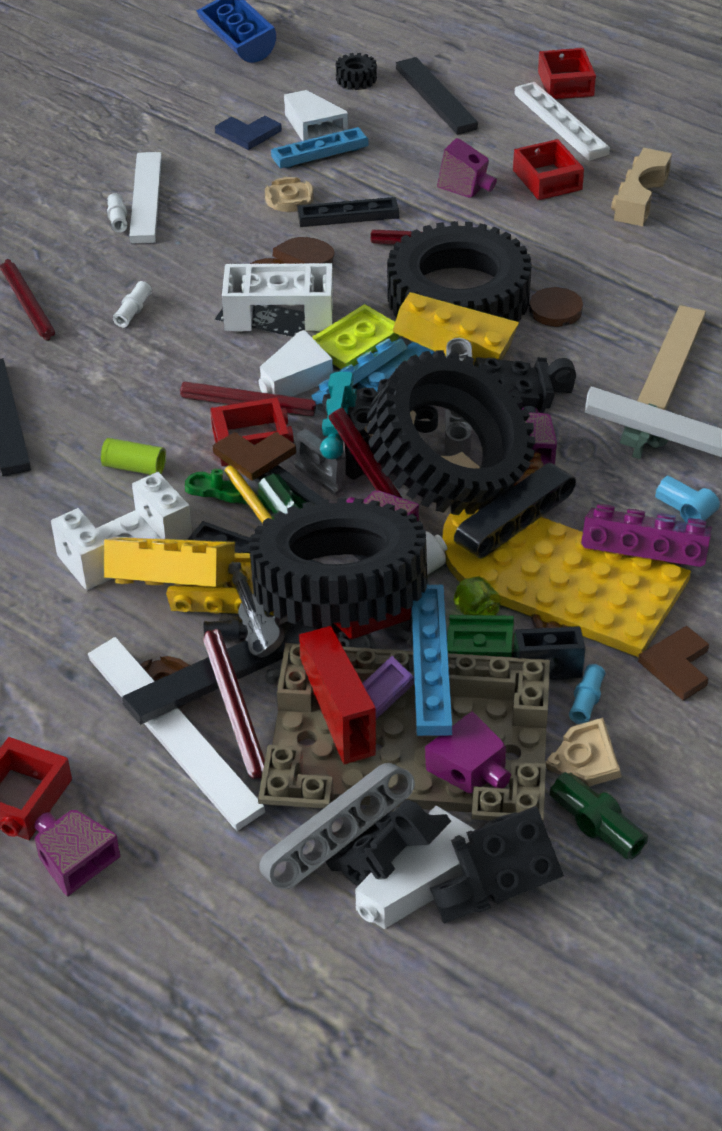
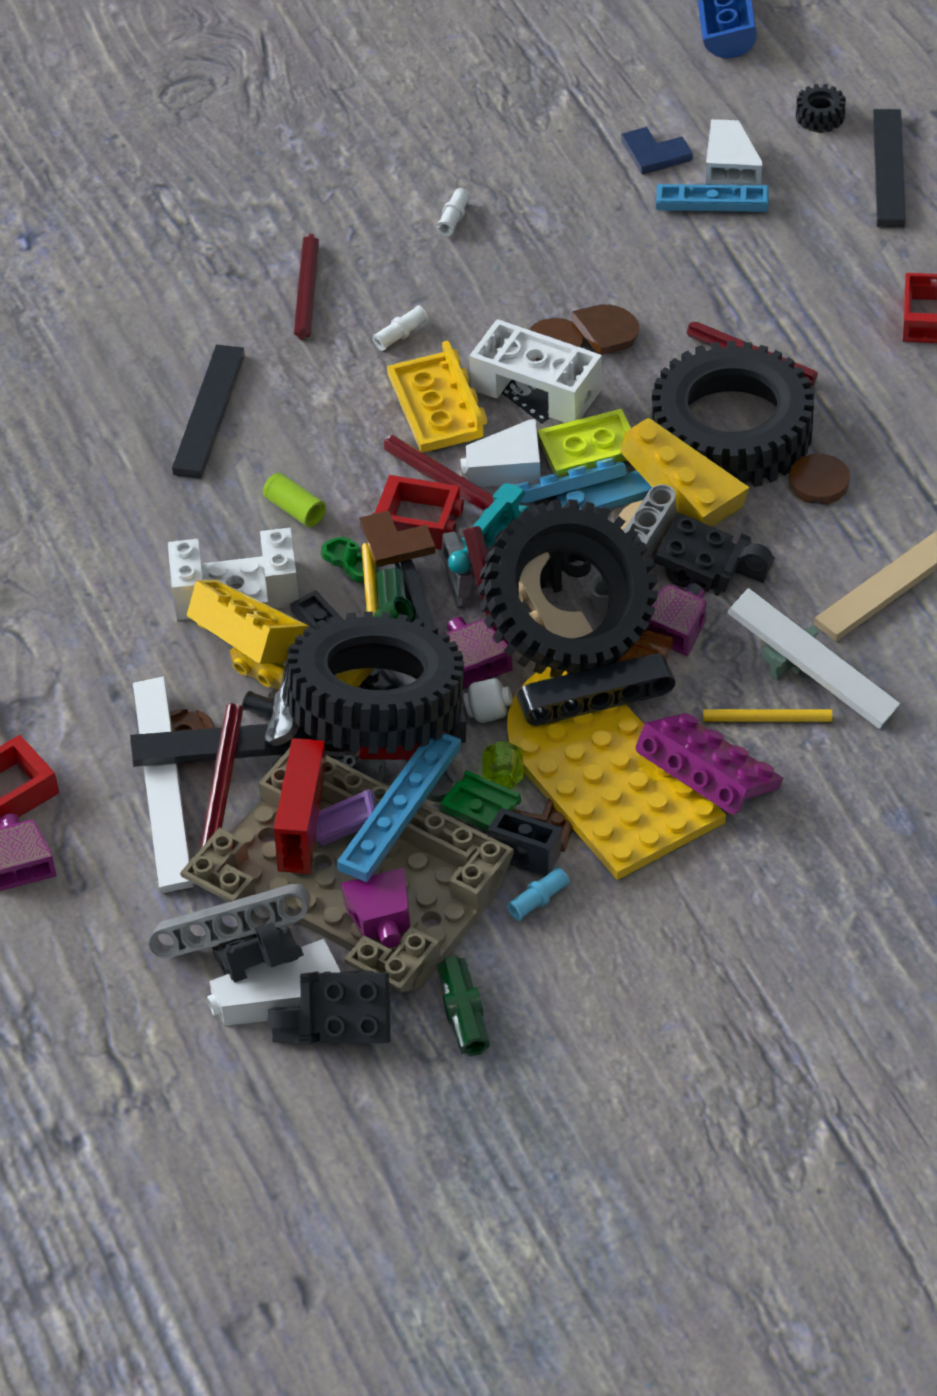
camera: 30 degrees right, 5 degrees up
(145, 198) = (496, 201): white tile -> none
(205, 343) = (438, 399): none -> yellow bracket
(288, 193) = (643, 246): tan tile -> none
(348, 211) = (689, 289): black tile -> none
(464, 170) = (836, 280): magenta torso -> none
(586, 754) = (496, 949): tan plate -> none
(650, 488) = (767, 715): none -> yellow bar
(672, 660) = (639, 893): reddish brown tile -> none
(688, 501) = (780, 745): medium azure piece -> none

